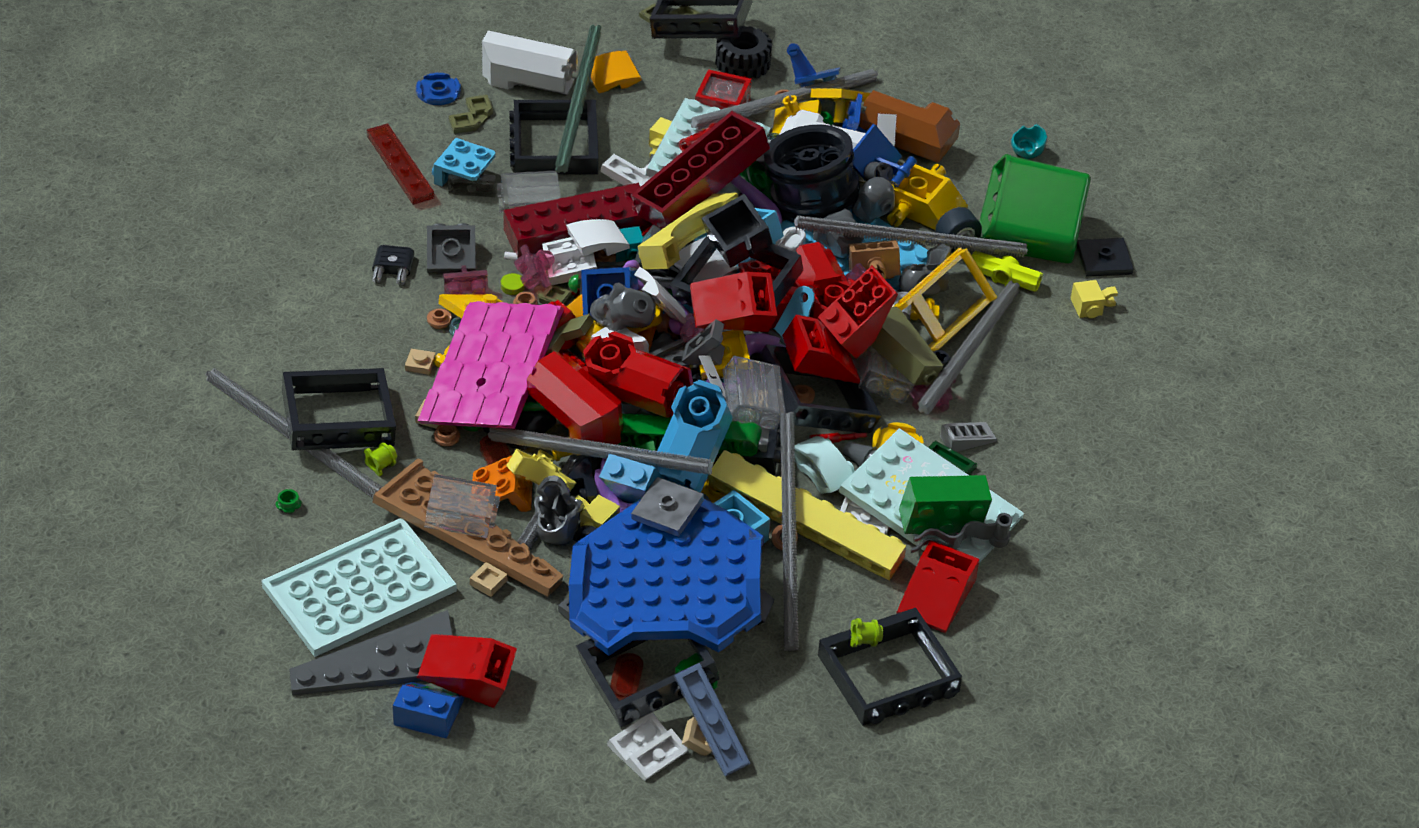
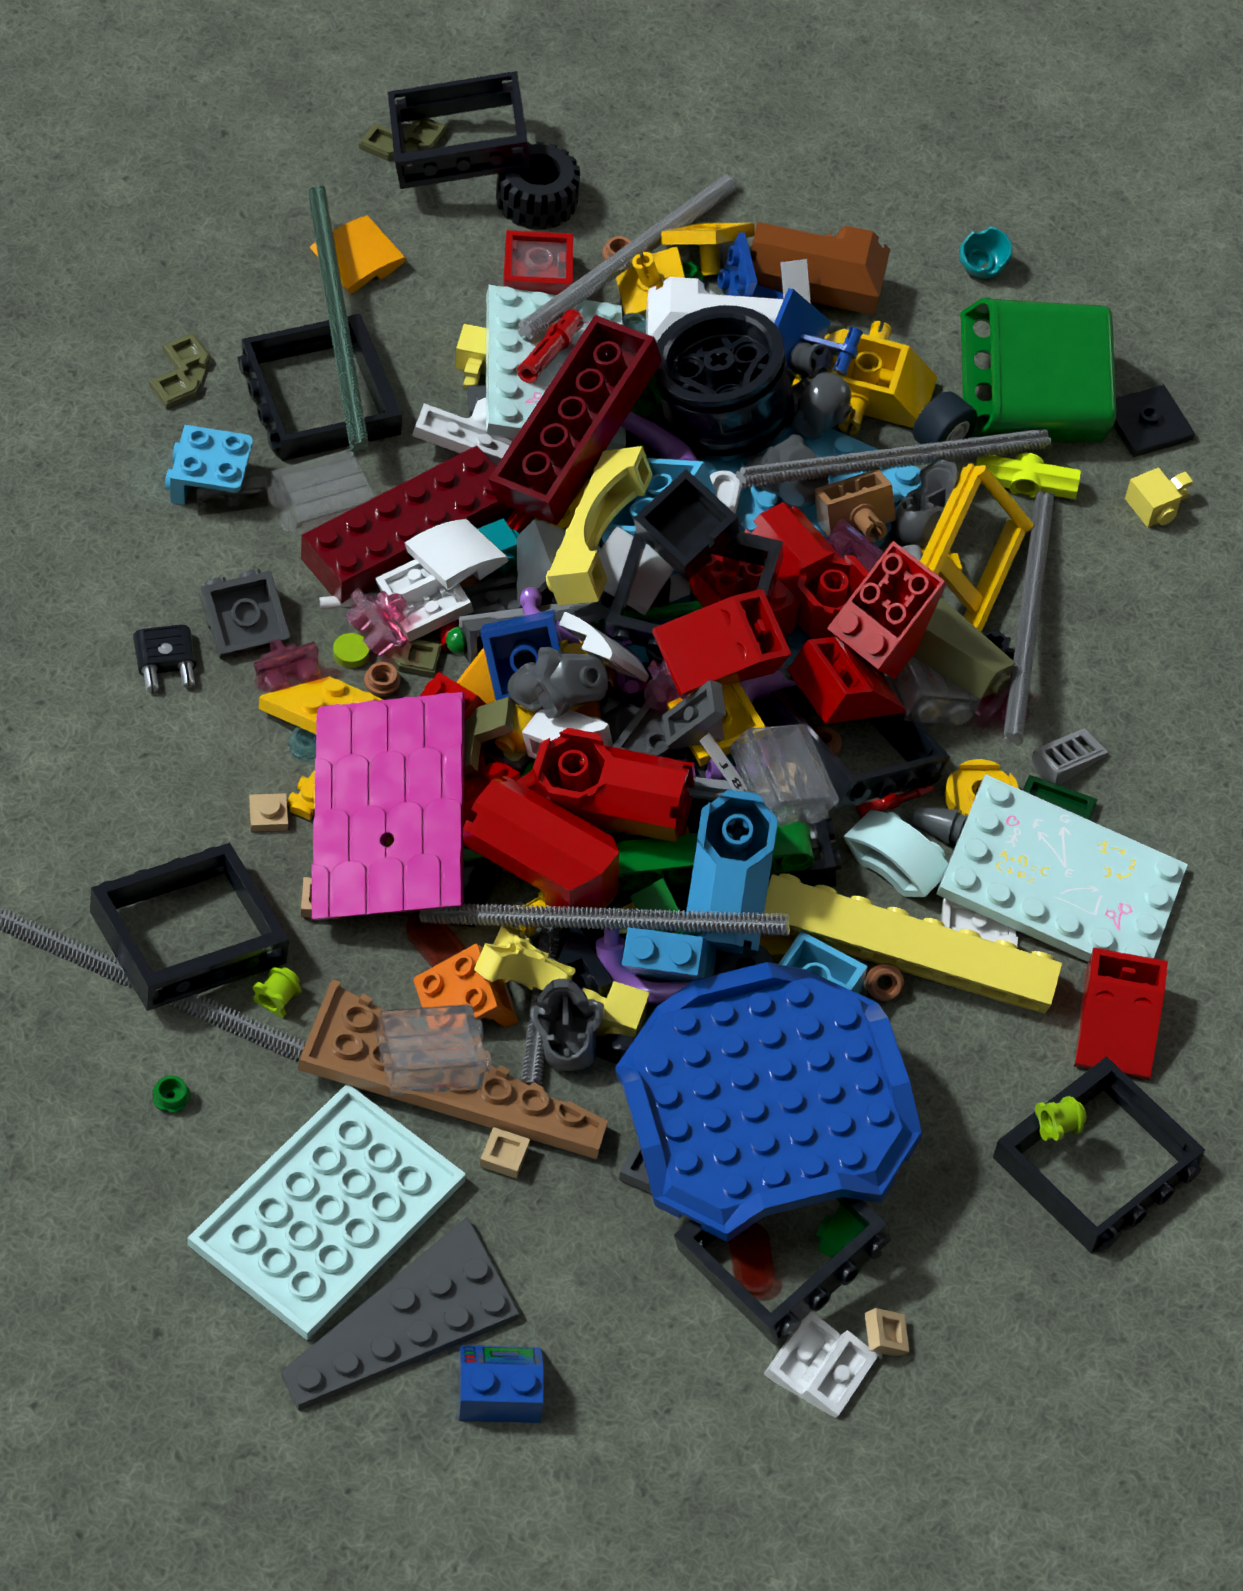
camera: 20 degrees left, 10 degrees up
(400, 164) = (111, 481): clear red plate -> none
(427, 94) = (119, 351): blue tile -> none
(439, 318) = (272, 740): nougat plate -> none
(446, 435) = (354, 938): nougat plate -> none
(468, 666) = (540, 1307): red slope -> none
(527, 62) = (236, 270): white brick -> none
(667, 506) = (736, 992): flat silver plate -> none
(712, 719) = (904, 1307): sand blue tile -> none
(789, 537) = (900, 980): light grey axle -> none
(796, 306) = (795, 620): medium azure piece -> none
(804, 71) = (642, 207): blue plate -> none
(944, 503) = (1099, 890): green brick -> none
(997, 533) = (1171, 914): dark grey flag -> none

